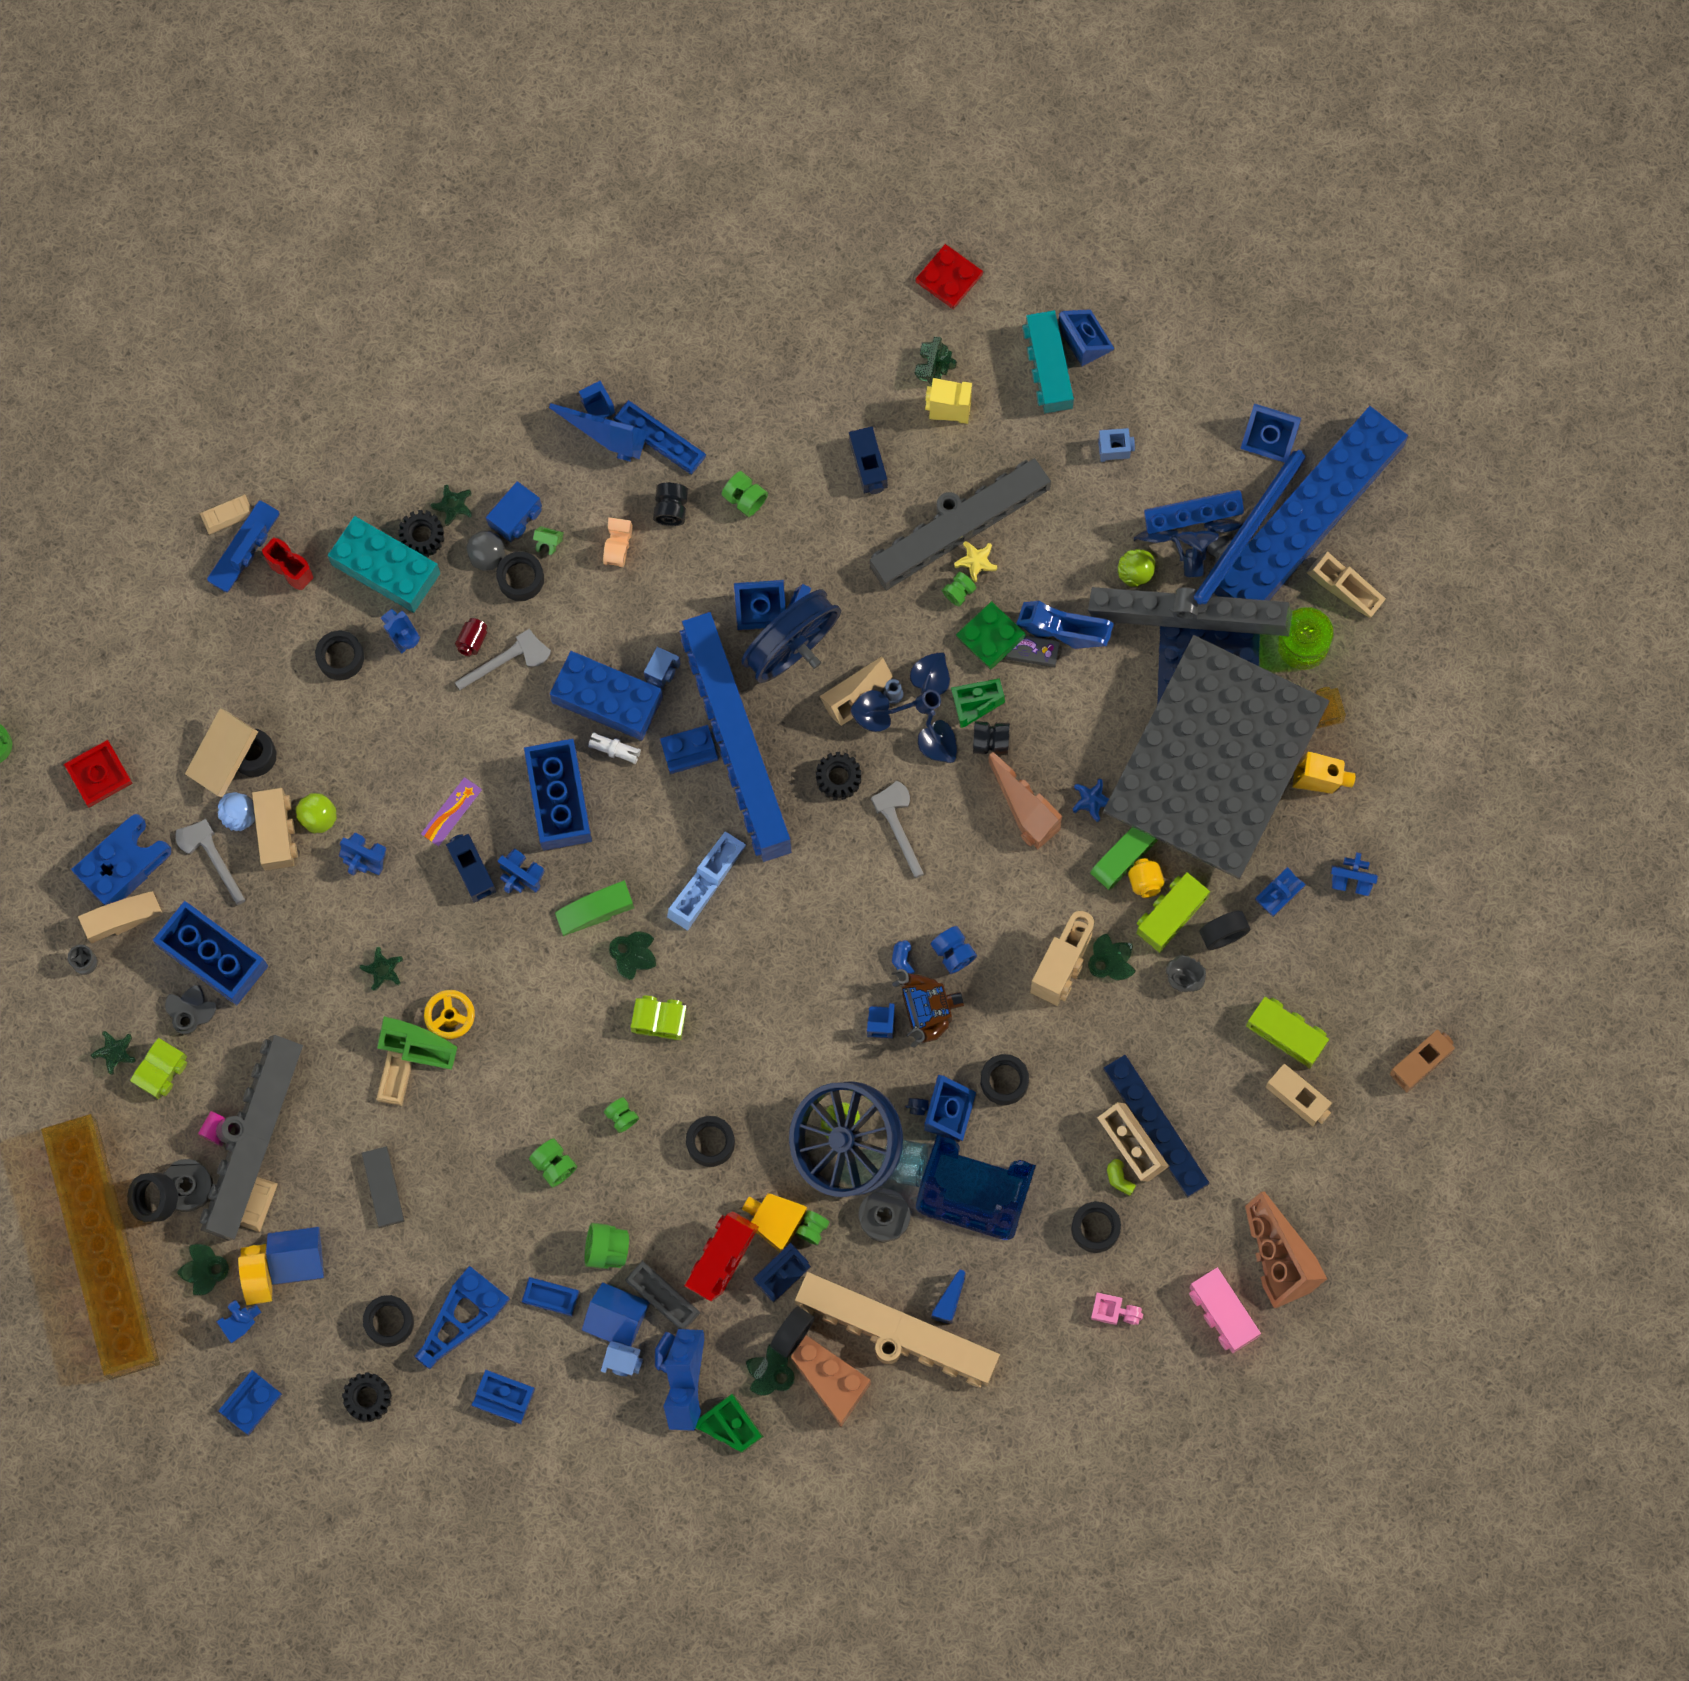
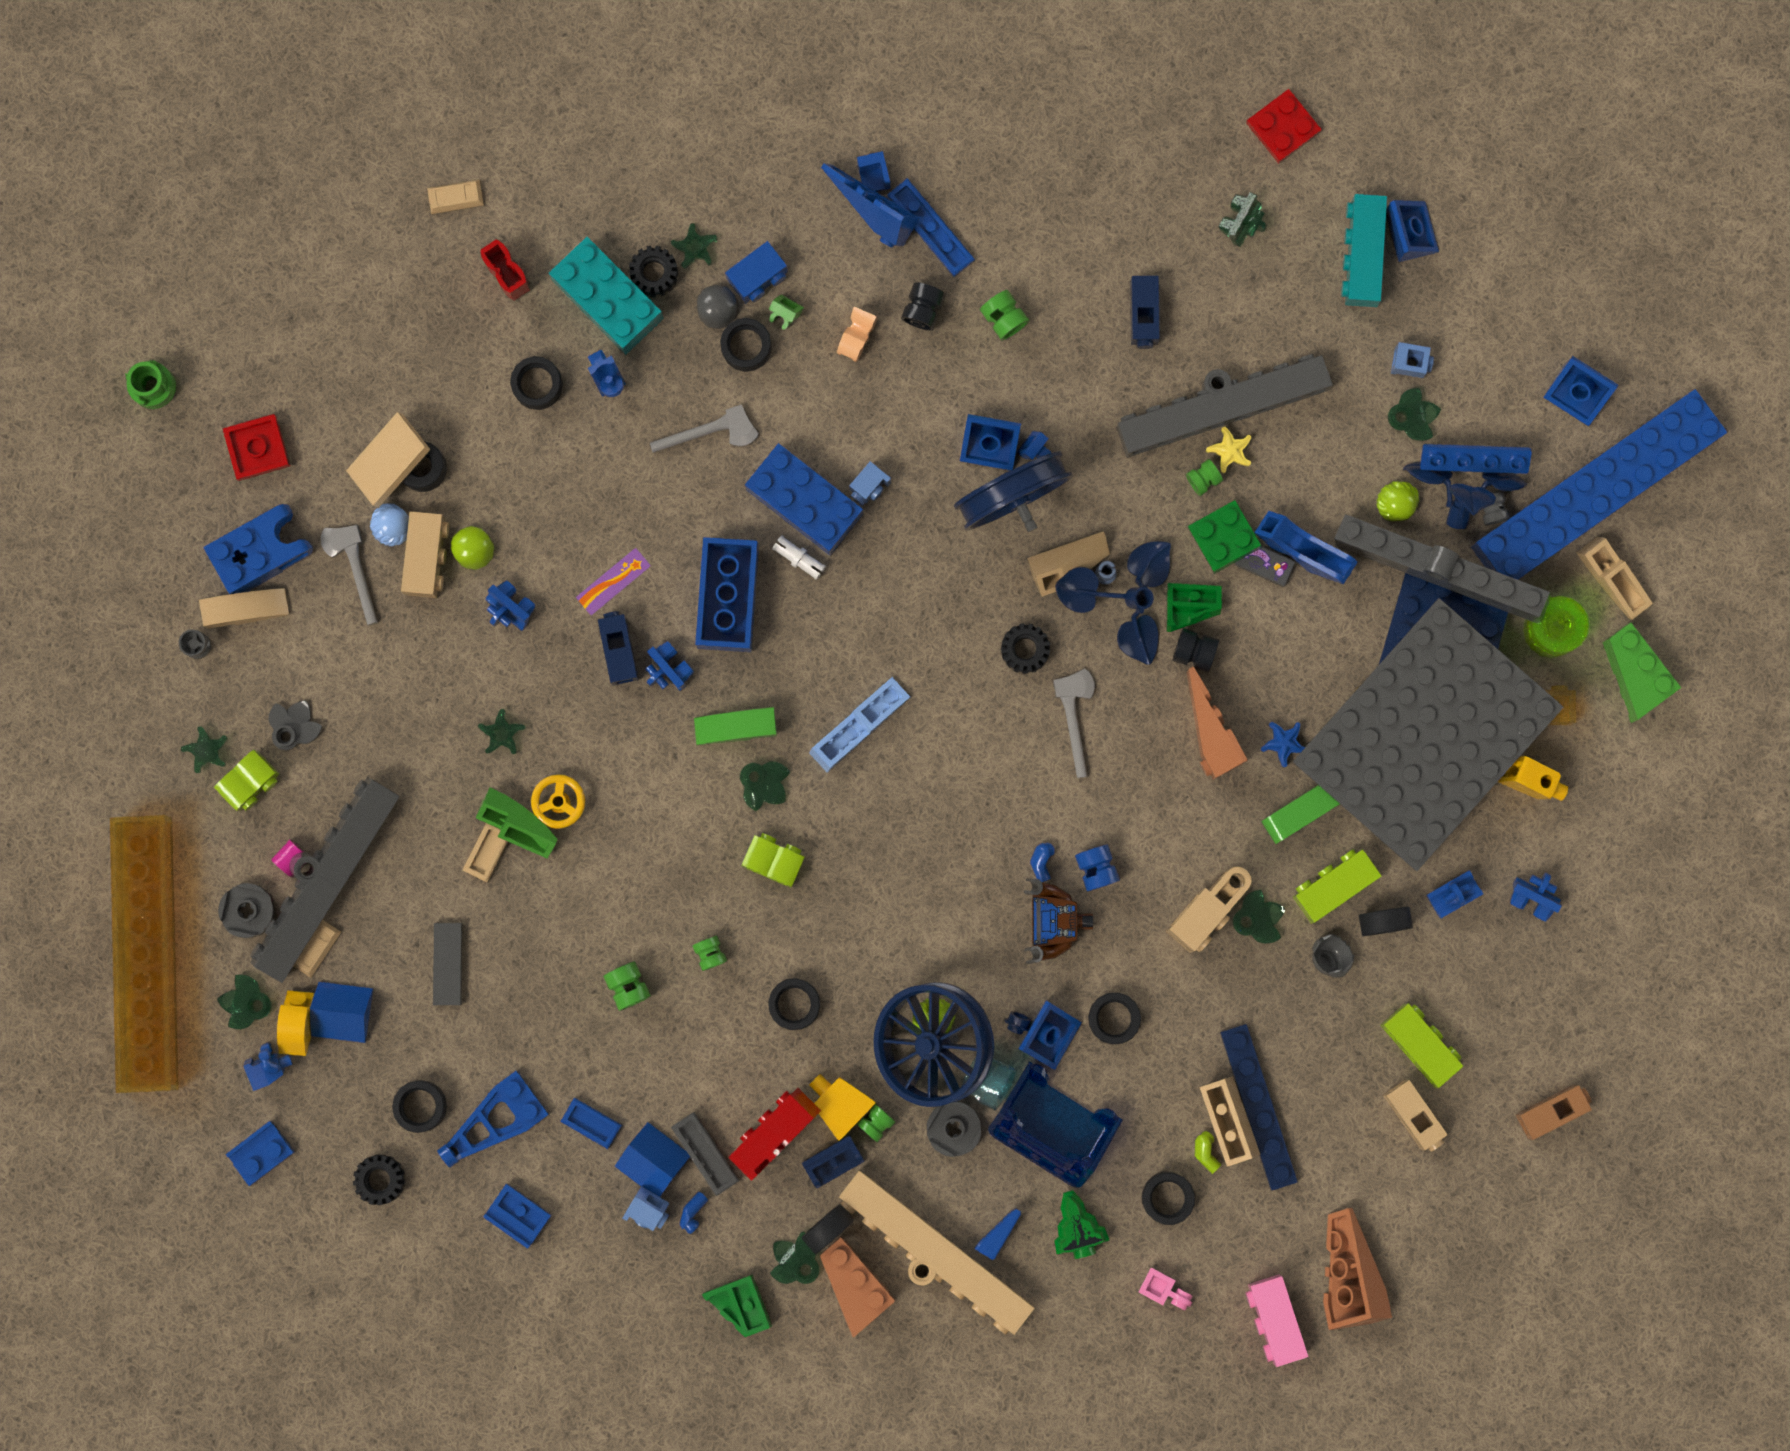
camera: 15 degrees right, 10 degrees up
(136, 1197) = (193, 916): black tyre -> none
(210, 953) = (327, 672): blue brick -> none
(243, 546) = (464, 237): blue bracket -> none
(471, 637) = (678, 398): dark red brick -> none
(606, 1246) = (659, 1089): bright green piece -> none
(683, 1373) = (704, 1244): blue arch -> none
(689, 749) = (876, 578): blue plate -> none
(737, 740) = (929, 580): blue brick -> none
(881, 1021) = (1002, 922): blue panel -> none
(949, 400) = (1247, 268): light yellow hips -> none
(1021, 1276) = (1078, 1229): none -> green rock
(1133, 490) = (1417, 415): none -> clear green plate
(1146, 878) = (1318, 842): yellow head -> none
(1249, 527) = (1530, 493): blue axle -> none
(1389, 658) = (1639, 672): none -> bright green wedge

